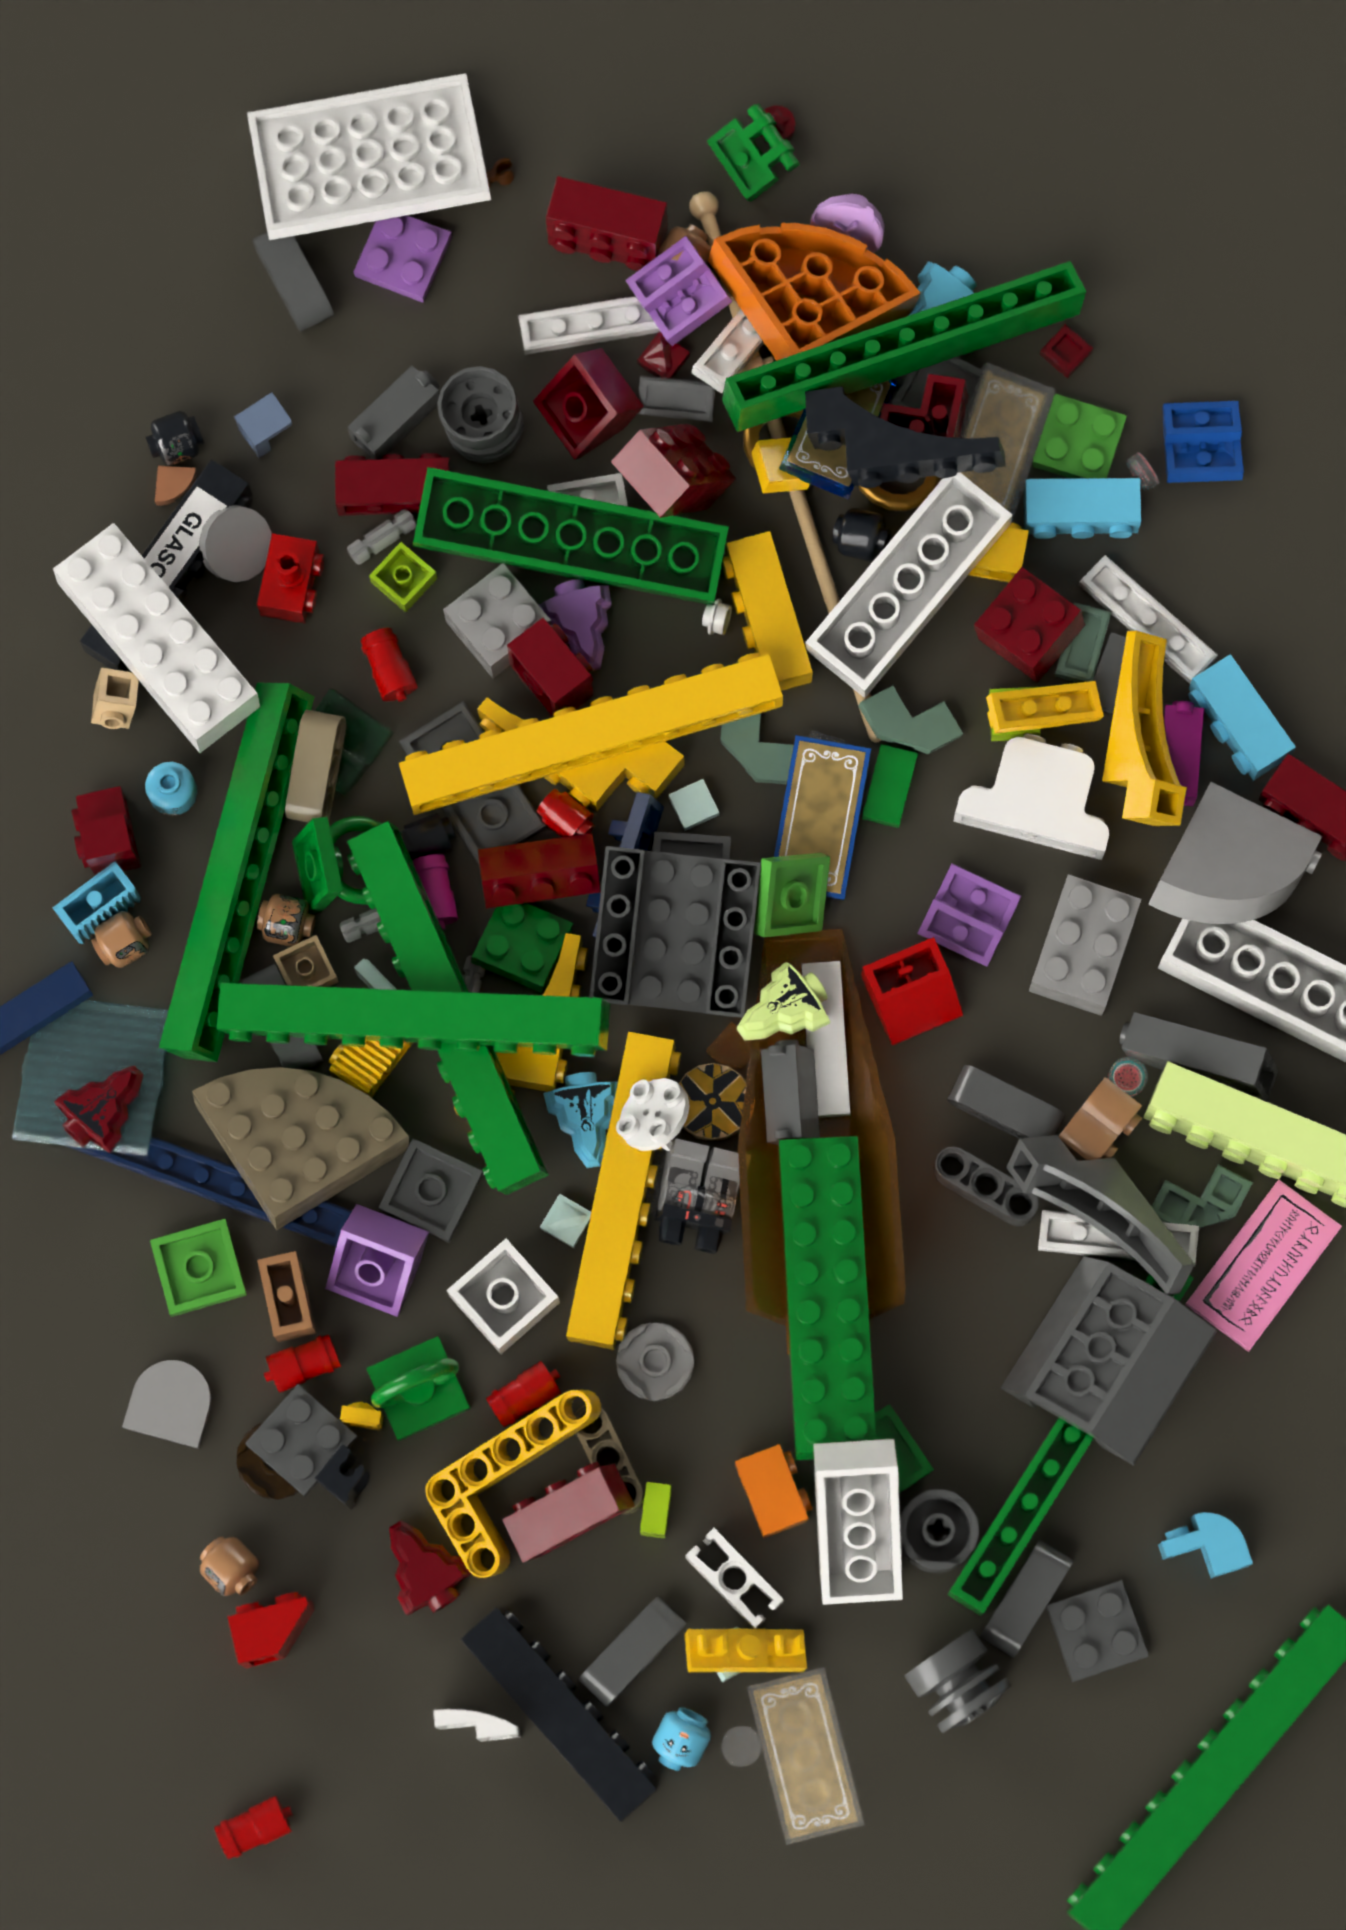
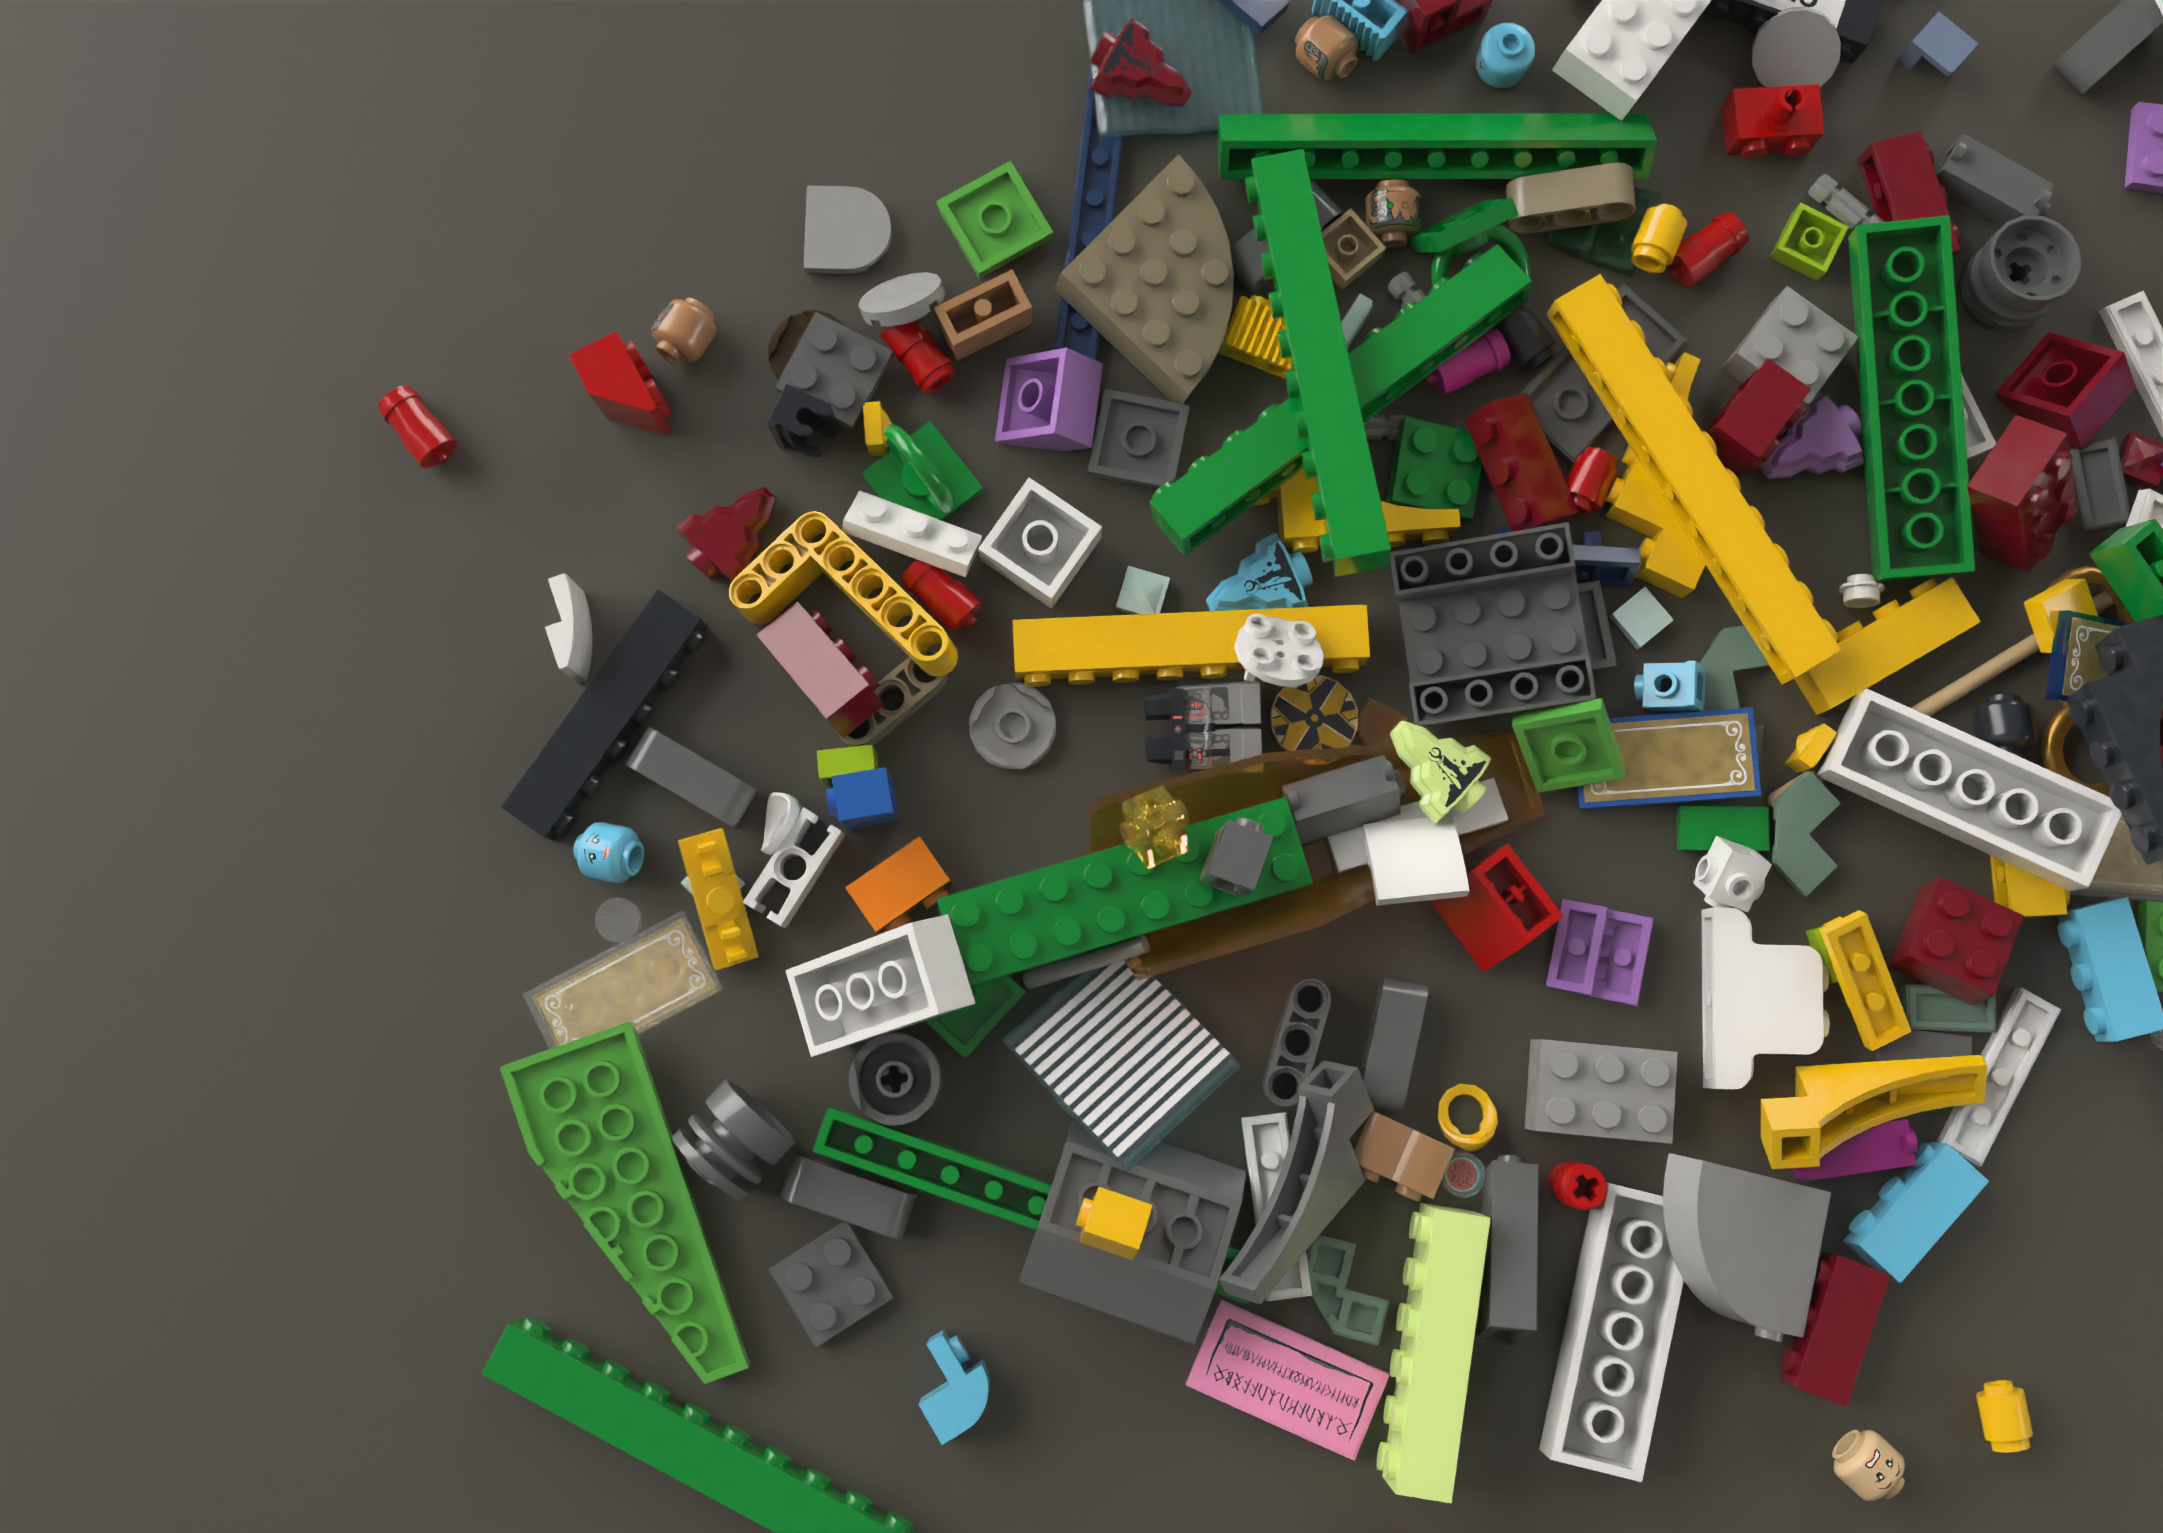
camera: 70 degrees right, 5 degrees up
(253, 1364) = (902, 299): none -> light grey tile
(371, 703) = (1658, 238): none -> yellow brick
(466, 1405) = (911, 533): none -> white plate
(680, 1582) = (780, 817): none -> white piece
(691, 1501) = (863, 798): none -> blue brick
(761, 783) = (1685, 694): none -> medium azure brick
(781, 1252) = (1155, 826): none -> clear yellow brick
(825, 1191) = (1236, 857): none -> dark grey brick
(840, 696) = (1810, 748): none -> yellow tile
(857, 1047) = (1415, 860): none -> white slope
(876, 1326) = (1086, 962): none -> light grey bar
(931, 790) = (1731, 875): none -> white brick
(944, 1793) = (611, 1154): none -> bright green wing
(963, 1334) = (1121, 1058): none -> piece
(1093, 1046) = (1486, 1127): none -> yellow piece
(1101, 1367) = (1113, 1222): none -> yellow brick
(1157, 985) = (1576, 1185): none -> red piece

